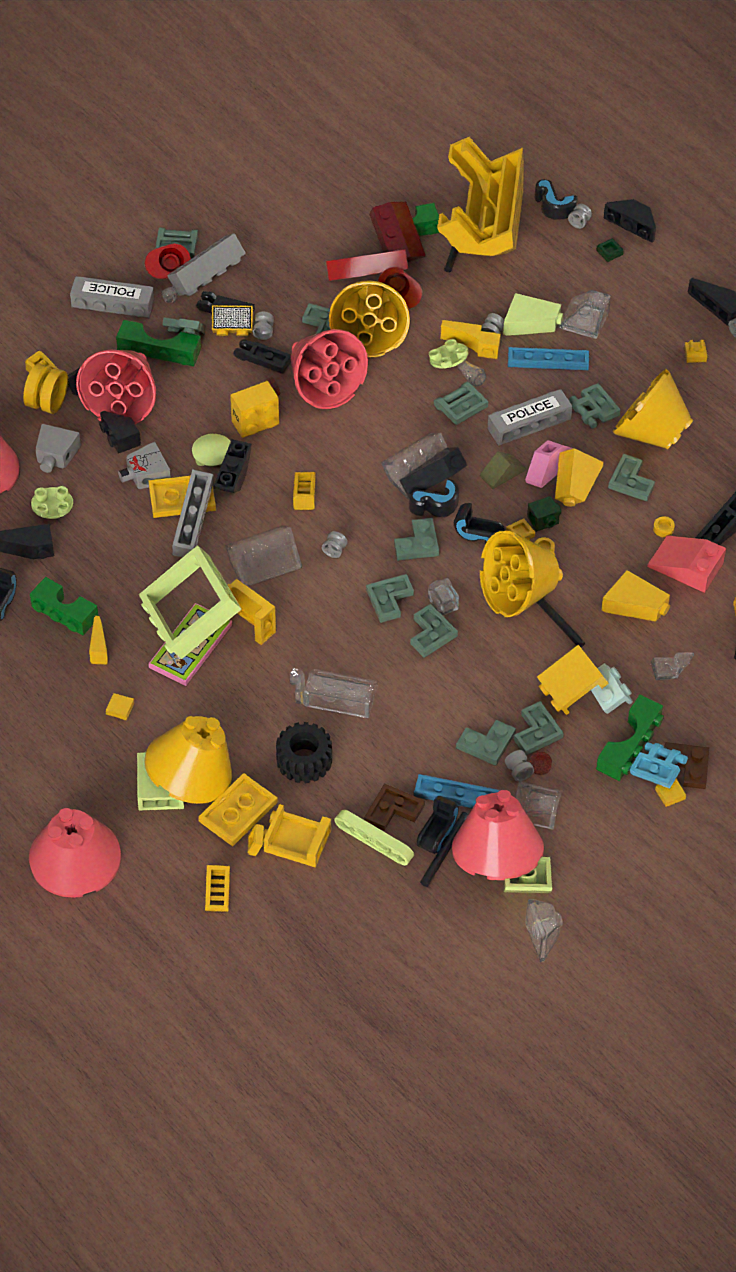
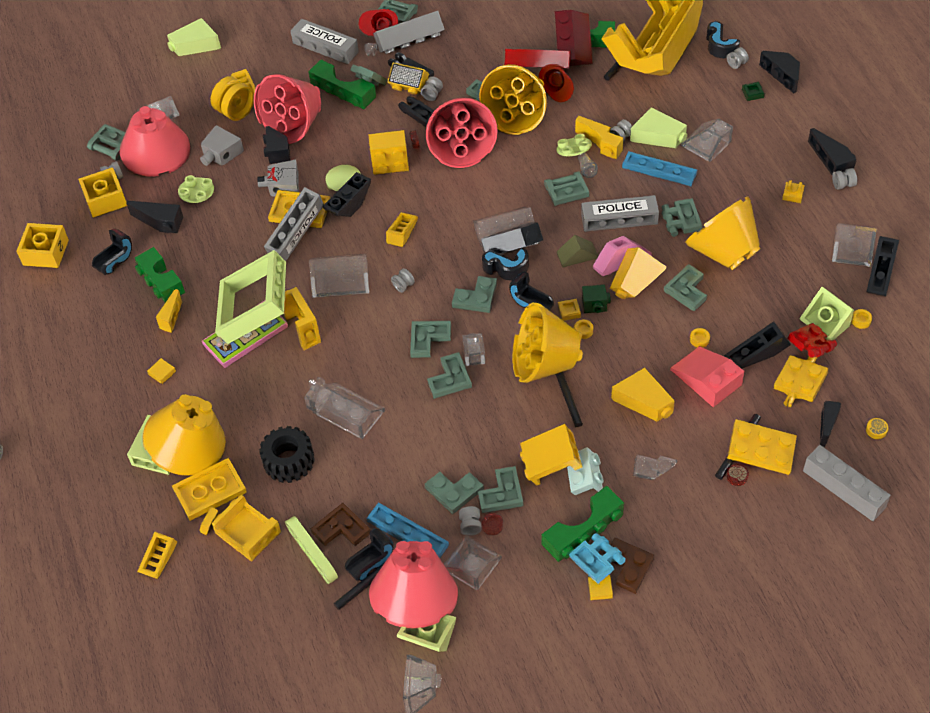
camera: 25 degrees right, 0 degrees up
(74, 854) = (57, 488): coral cone -> none

